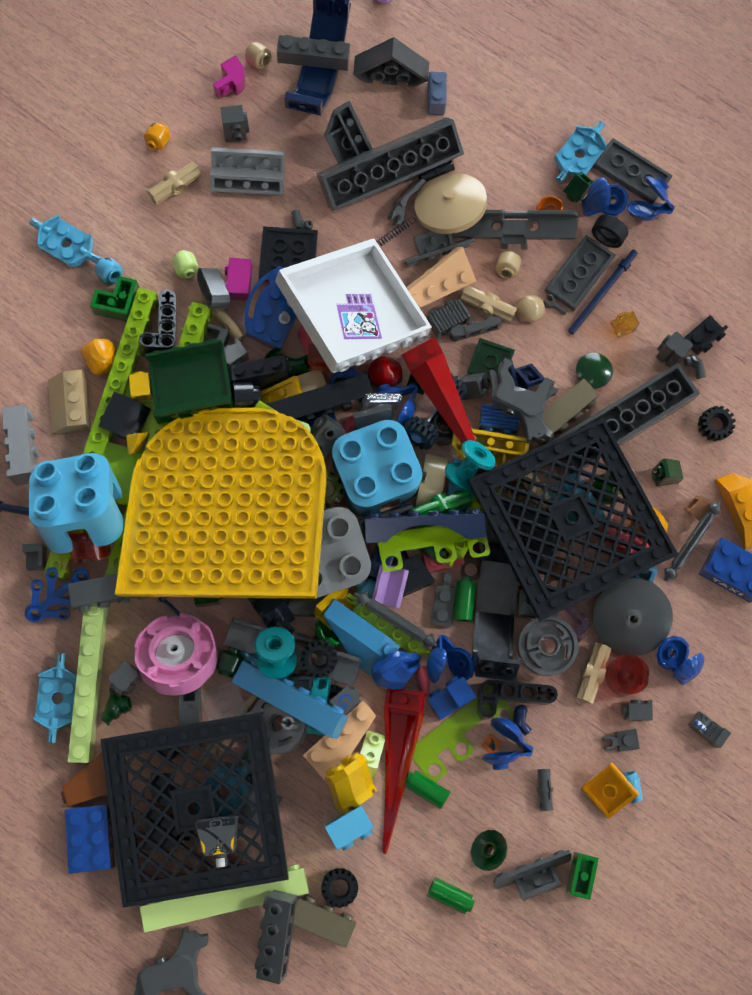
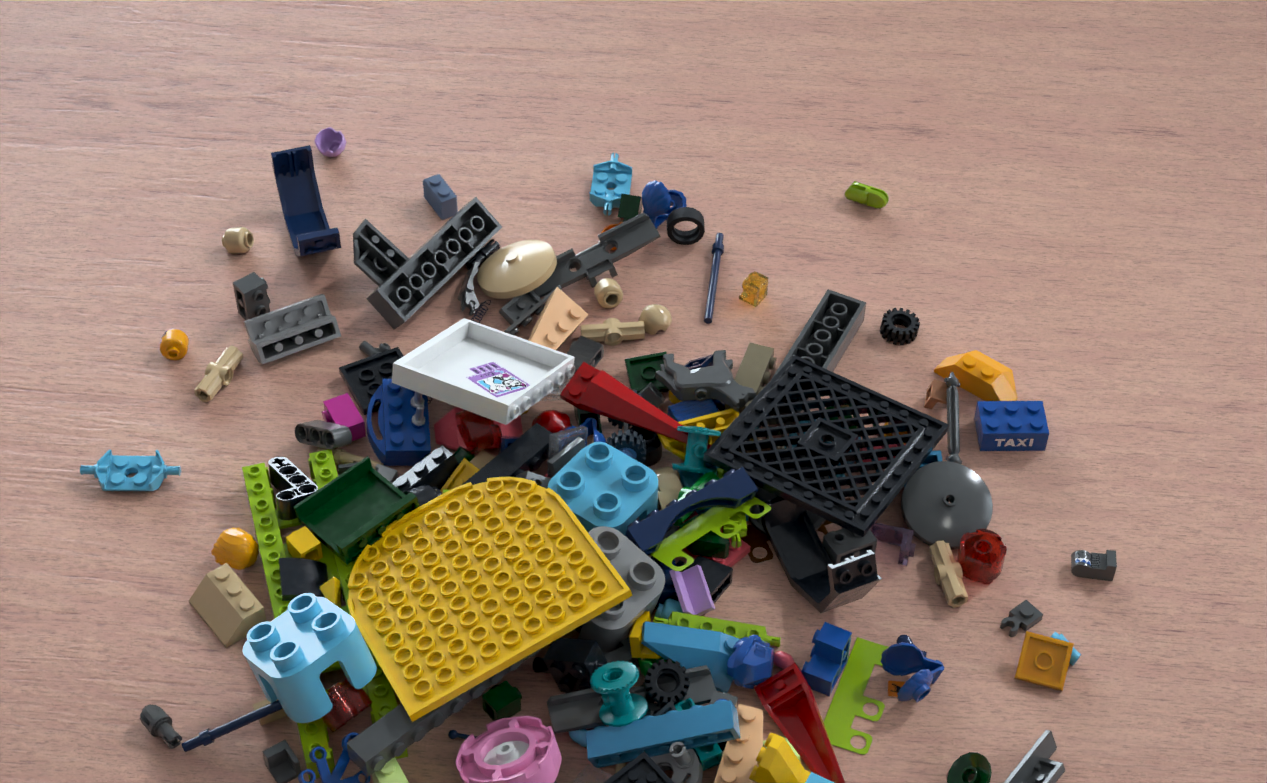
camera: 25 degrees left, 30 degrees down
(19, 443) = (199, 667): light grey wedge -> none
(108, 270) = (197, 473): medium azure head -> none
(116, 304) = (224, 496): green brick -> none
(184, 264) = (277, 433): yellowish green head -> none
(229, 662) = (572, 747): dark green head -> none
(233, 78) = (221, 268): dark pink brick -> none
(313, 52) = (295, 212): dark grey brick -> none
(391, 63) = (379, 191): dark grey brick -> none
(395, 619) = (719, 615): dark grey wheel -> none
(427, 789) = (864, 756): green brick -> none
(443, 603) = (754, 590): dark grey plate -> none
(458, 660) = (795, 629): blue animal -> none
(464, 600) = (774, 576): green brick -> none
(475, 328) = (617, 354): dark grey hinge -> none
(517, 696) = (885, 627): black beam -> none
(545, 790) = (981, 696): dark grey pin -> none
(550, 663) = (898, 578): flat silver piece -> none
(552, 304) = (669, 304): dark grey hand -> none
(580, 273) = (681, 273): dark grey tile -> none
(582, 875) = (1078, 747): green brick -> none
(594, 369) = (754, 334): dark green dish -> none
(630, 170) = (690, 180): dark grey tile -> none
(637, 711) = (1015, 582): dark grey brick -> none
(646, 211) = (706, 173): blue animal -> none
(667, 472) = (886, 379): slope -> none
(673, 349) = (816, 283): dark grey brick -> none
(682, 667) = (1013, 521): blue animal -> none
(696, 363) = (847, 290): dark grey arm -> none
(705, 335) = (834, 268): black bracket -> none

